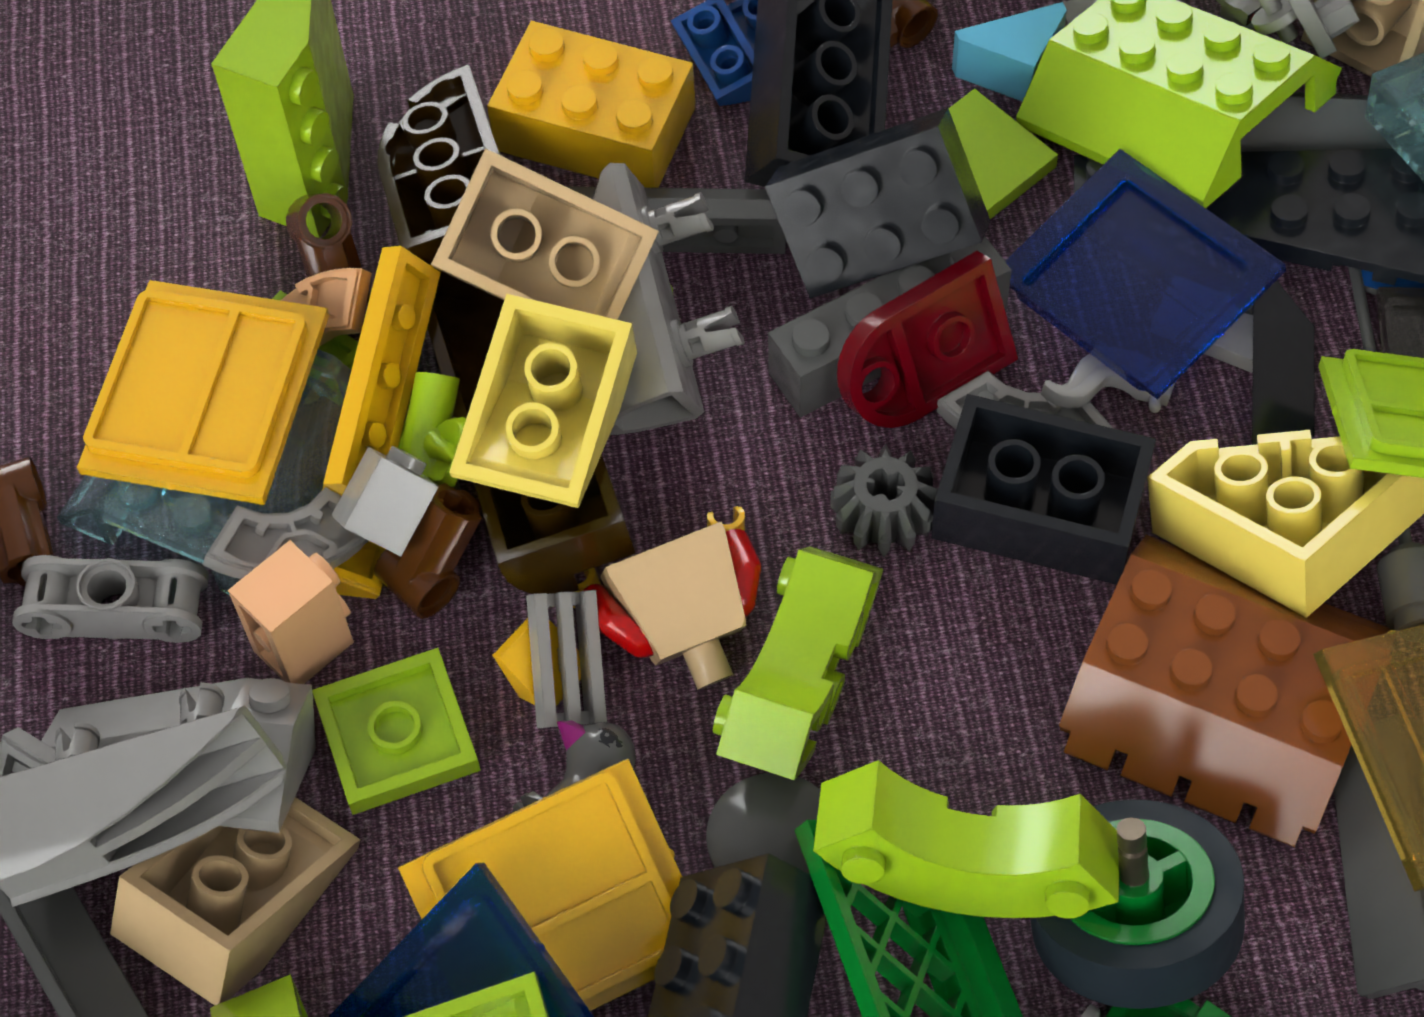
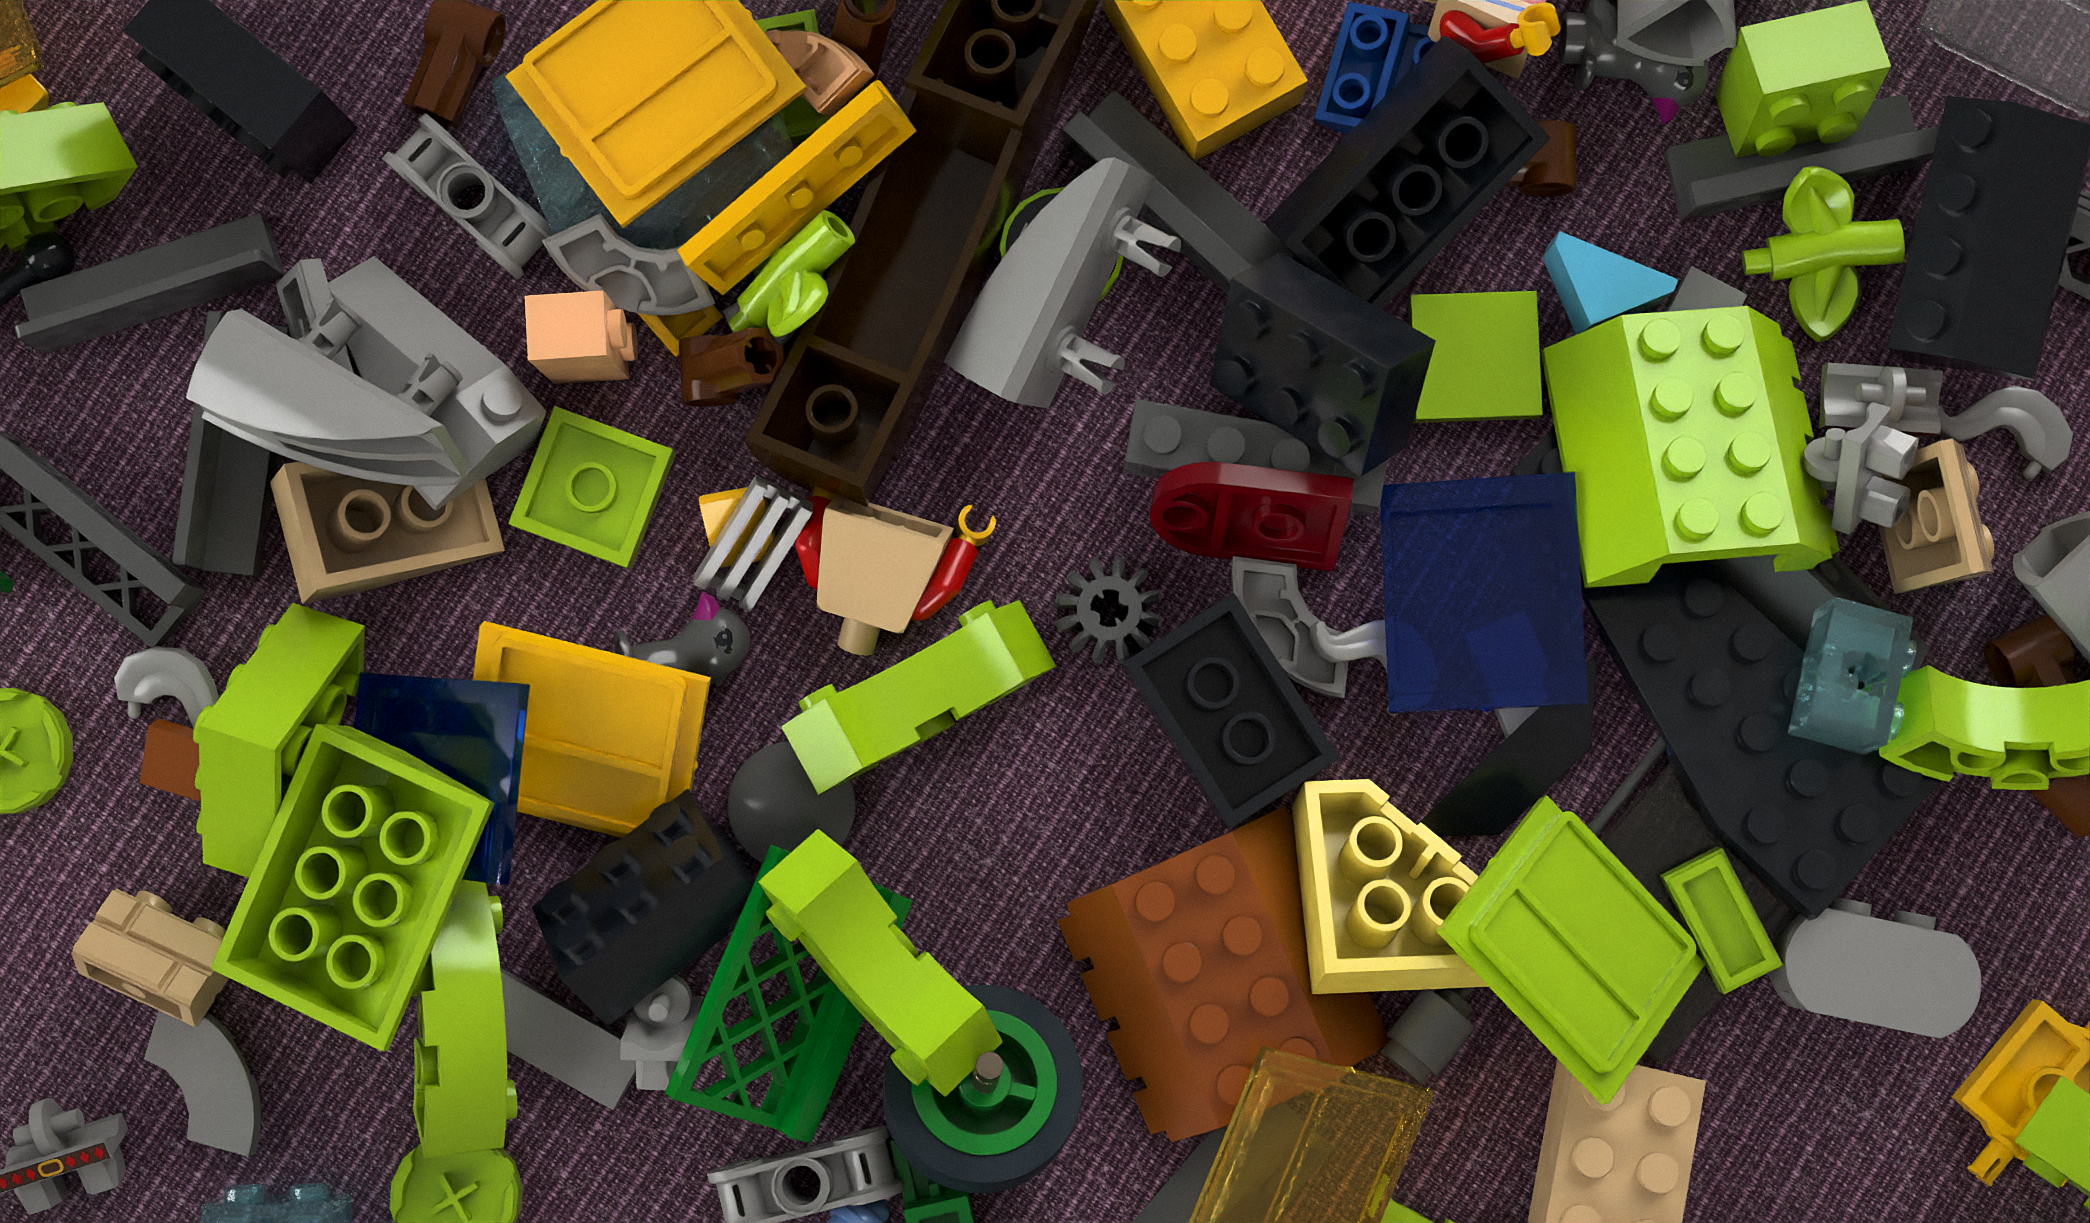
camera: 40 degrees right, 25 degrees up
(386, 498) = (705, 310): light grey brick -> none
(542, 241) = (1000, 189): tan slope -> none
(545, 400) = (879, 340): light yellow slope -> none

